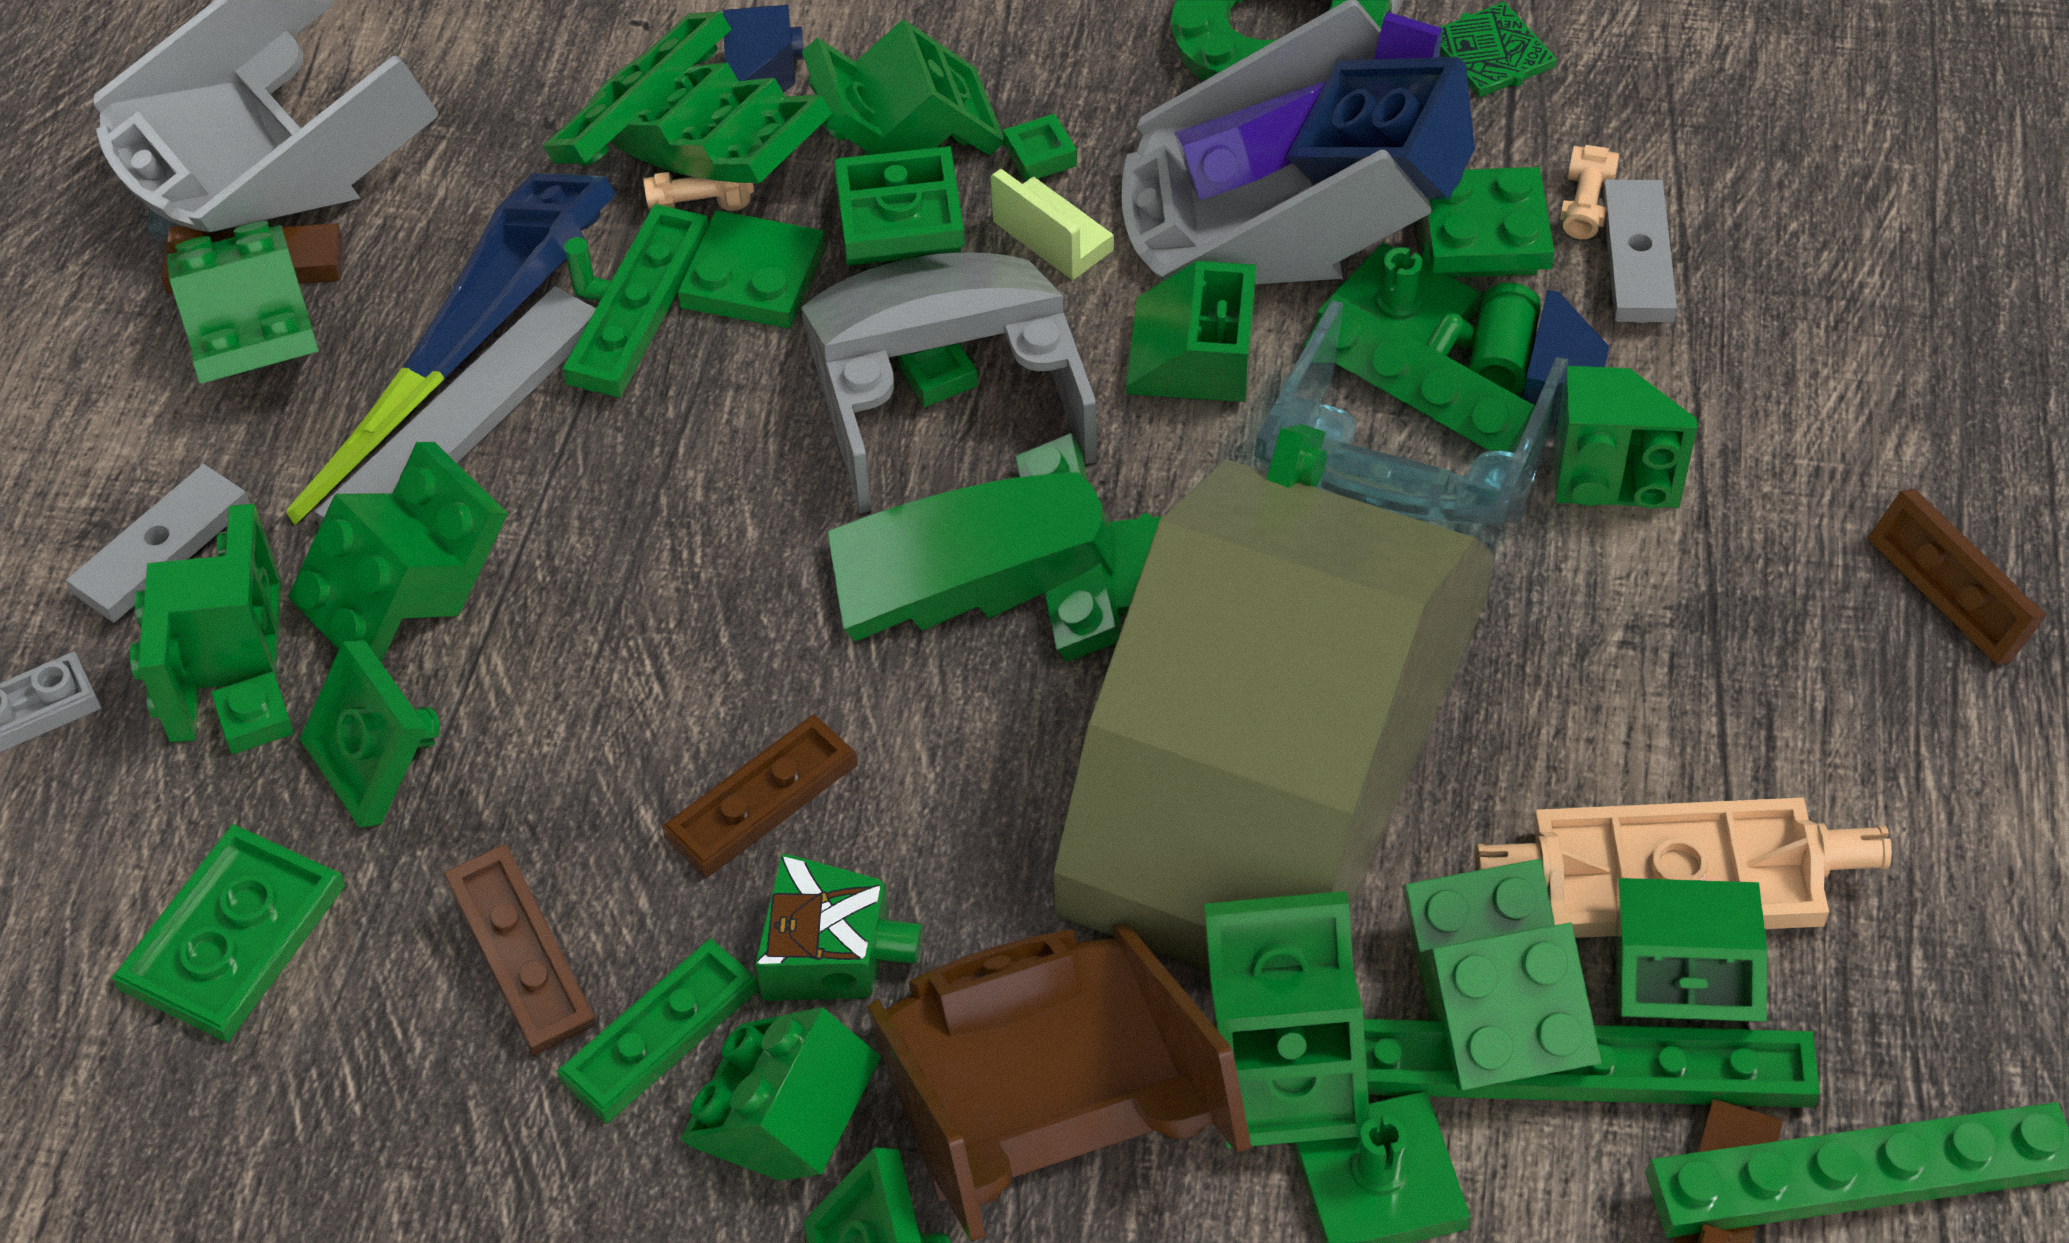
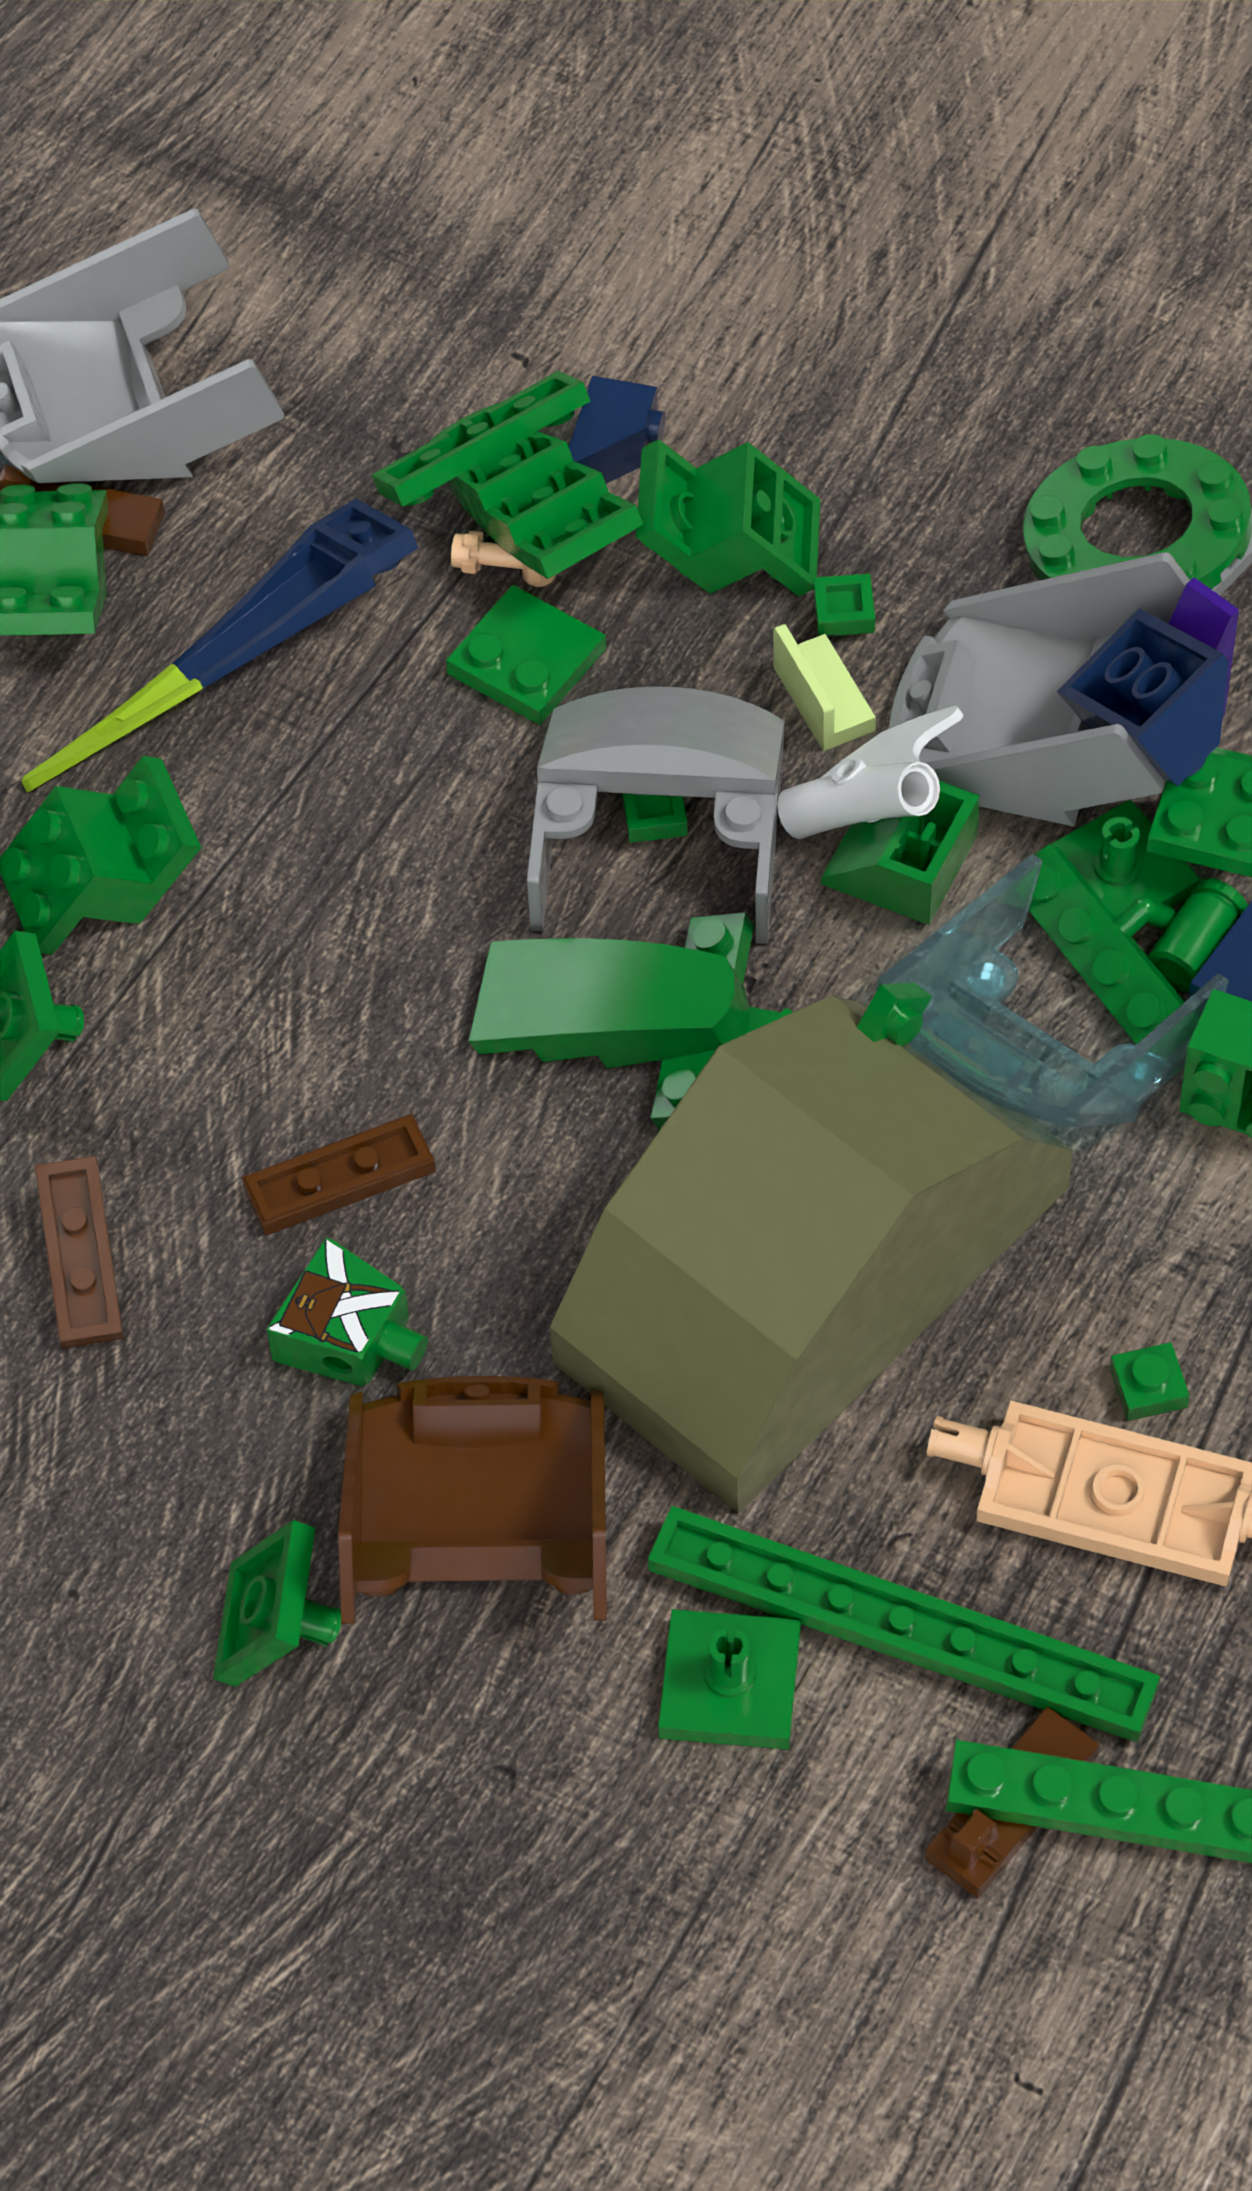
camera: 20 degrees right, 5 degrees up
(482, 392) = (231, 712): light grey tile -> none
(634, 299) = (402, 657): green plate -> none
(657, 1030) = (173, 1359): green tile -> none
(782, 1094) = (251, 1448): green slope -> none
(899, 205) = (675, 635): green bracket -> none
(1149, 278) = (872, 782): none -> white pin
(1245, 142) = (1023, 664): dark purple slope -> none
(1290, 1014) = (689, 1519): green bracket -> none
(1501, 974) = (901, 1538): green bracket -> none
(1653, 754) = (1149, 1381): none -> green plate
(1690, 950) = (1079, 1570): green slope -> none

